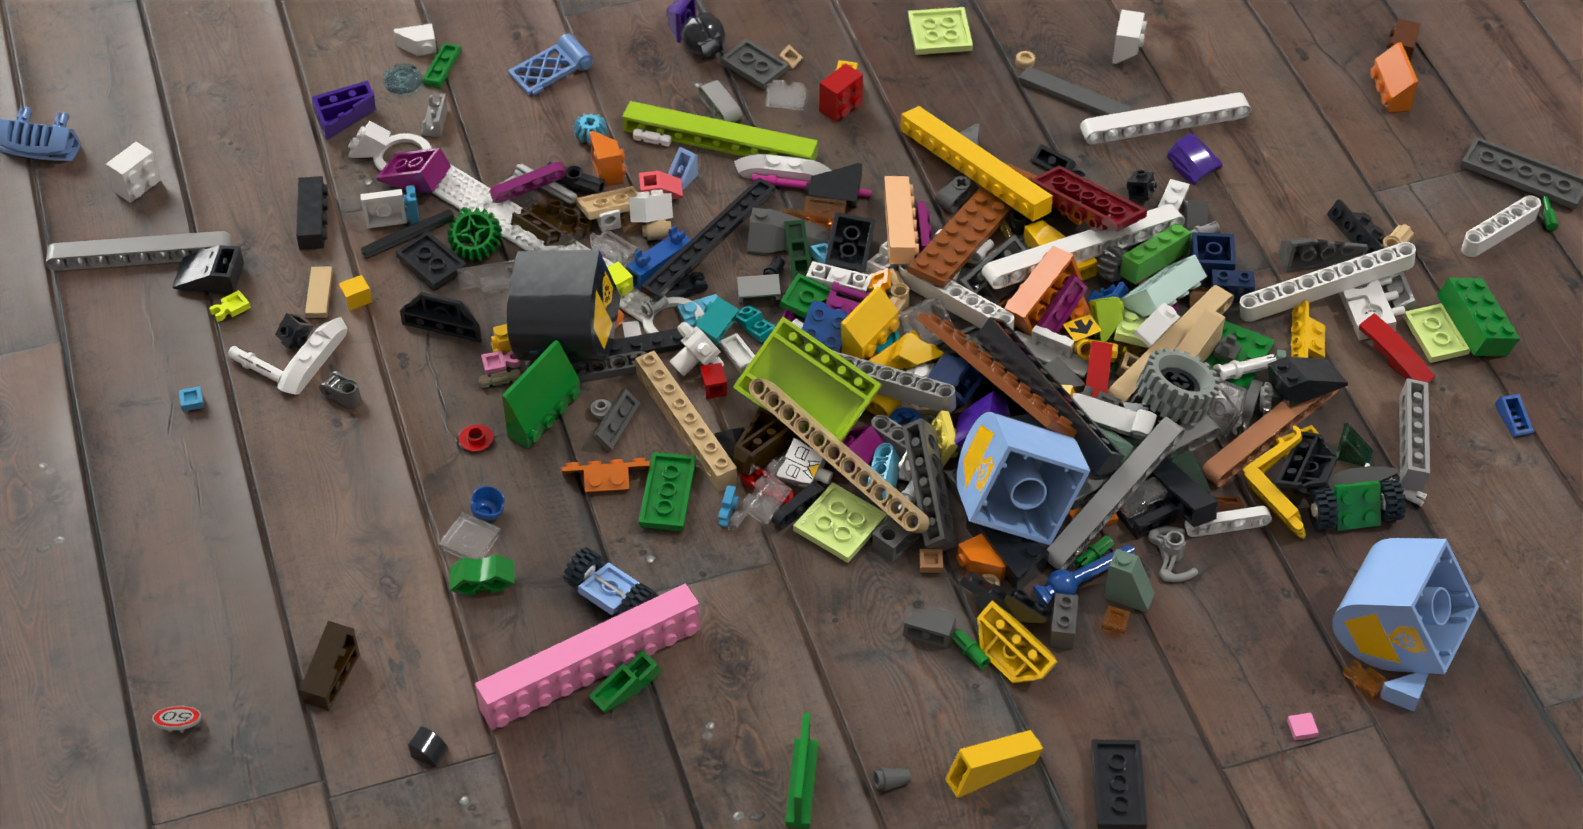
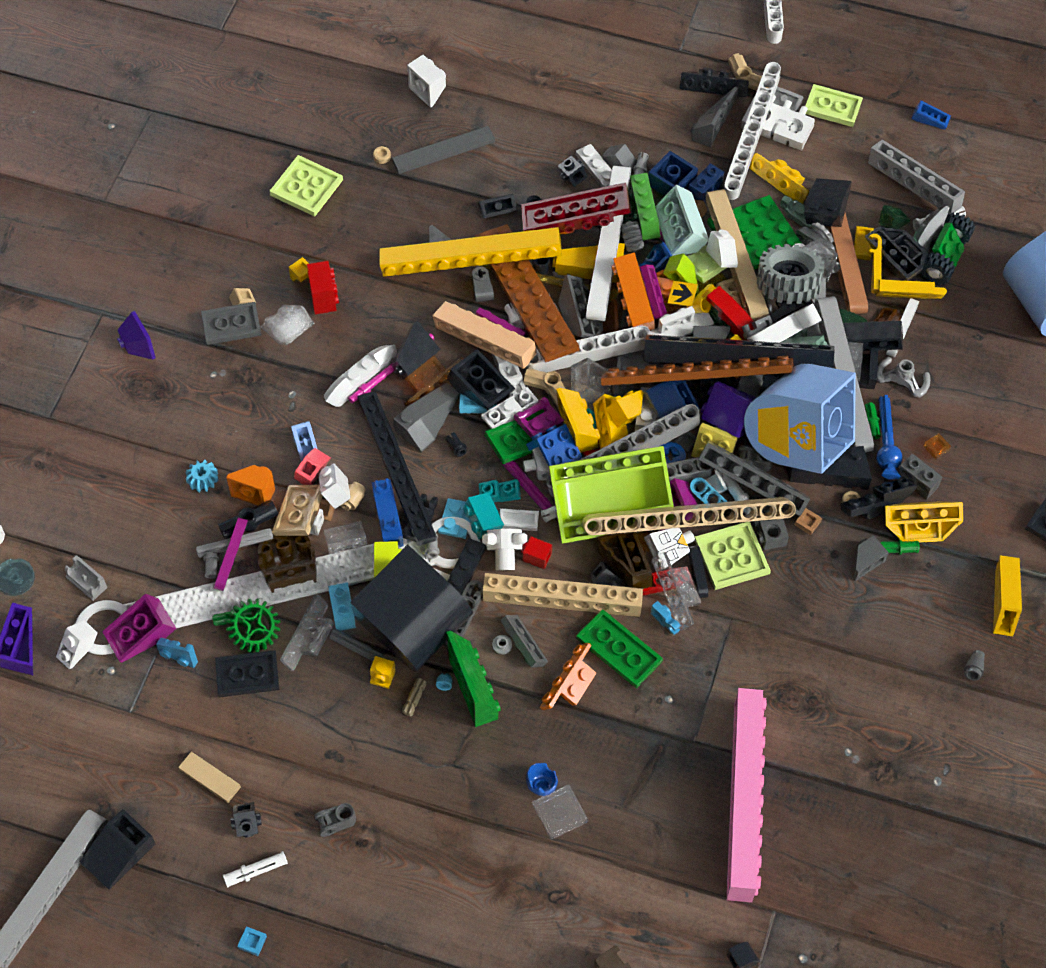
camera: 55 degrees left, 10 degrees up
(231, 304) = (171, 851): neon yellow plate -> none
(311, 212) = (117, 733): black brick -> none
(312, 356) = (280, 821): white brick -> none
(356, 292) = (238, 748): yellow panel -> none
(383, 208) = (169, 676): white plate -> none
(407, 233) = (200, 674): black axle -> none
(441, 316) = (321, 699): black wedge -> none
(442, 65) = (26, 538): green tile -> none
(479, 444) = (461, 758): red piece -> none
(483, 574) = (608, 823): green brick -> none
(497, 362) = (398, 689): bright pink plate -> none
(569, 52) = (108, 438): medium blue piece -> none
(605, 583) = (689, 741): plate -> none
(626, 682) = (777, 784): green slope -> none
(652, 137) = (246, 440): white axle -> none
(703, 35) = (178, 337): black piece -> none
(716, 133) = (285, 395): lime brick -> none
(720, 102) = (253, 372): light grey beam -> none
(758, 286) = (470, 467): light grey hinge -> none
(797, 247) = (460, 420): dark green slope -> none
(802, 778) = (952, 730): green fence -> none
(881, 279) = (537, 387): light orange plate -> none
(980, 557) = (829, 490): orange slope -> none
(1128, 582) = (916, 419): sand green slope -> none
(1165, 118) = (516, 115): white beam -> none
(1193, 158) = (571, 126): dark purple slope -> none
(1203, 335) = (751, 232): tan slope -> none
(1227, 349) = (762, 226): dark grey tile -> none
(1236, 369) = (785, 233): white pin -> none
(1393, 347) = (834, 136): red slope -> none
(1478, 317) = (843, 74): green brick -> none

